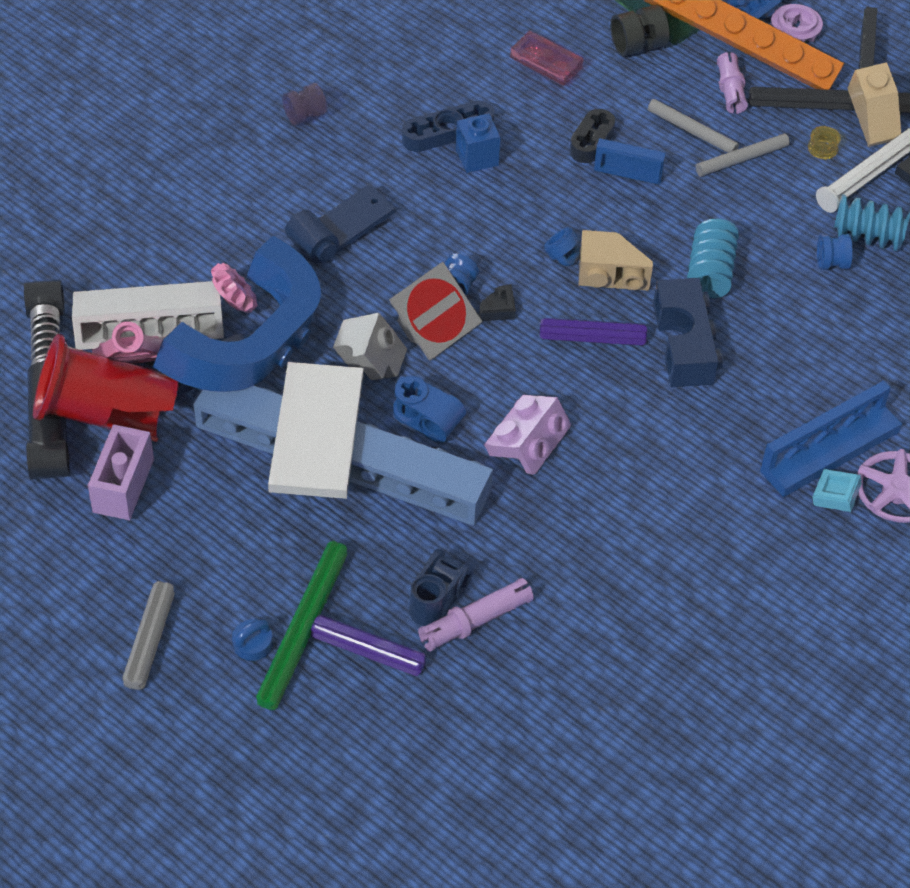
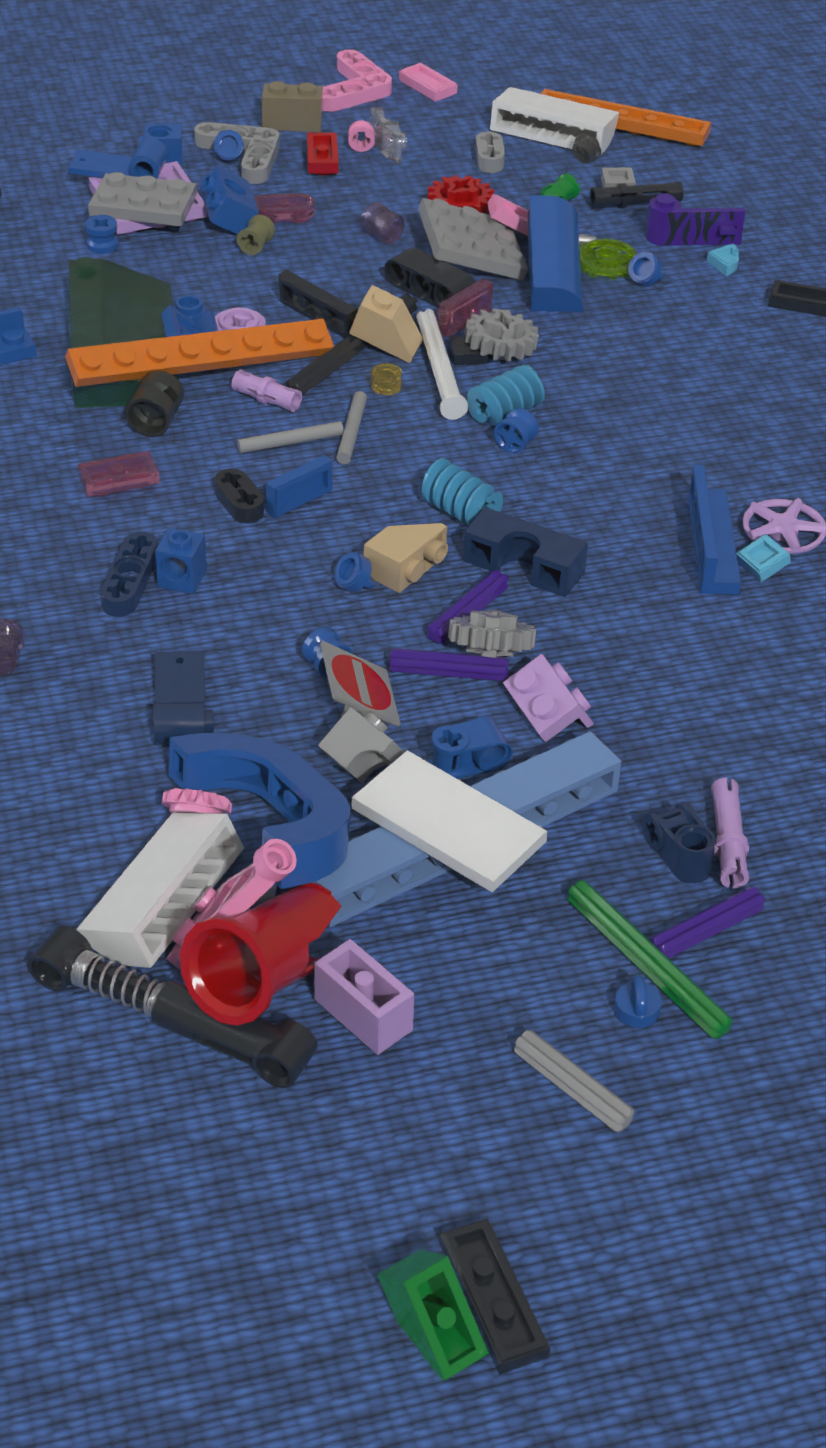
camera: 55 degrees left, 10 degrees down
(498, 305) = (377, 646): black tile -> none
(515, 353) = (448, 664): none -> dark purple axle
(559, 358) = (492, 633): none -> light grey gear

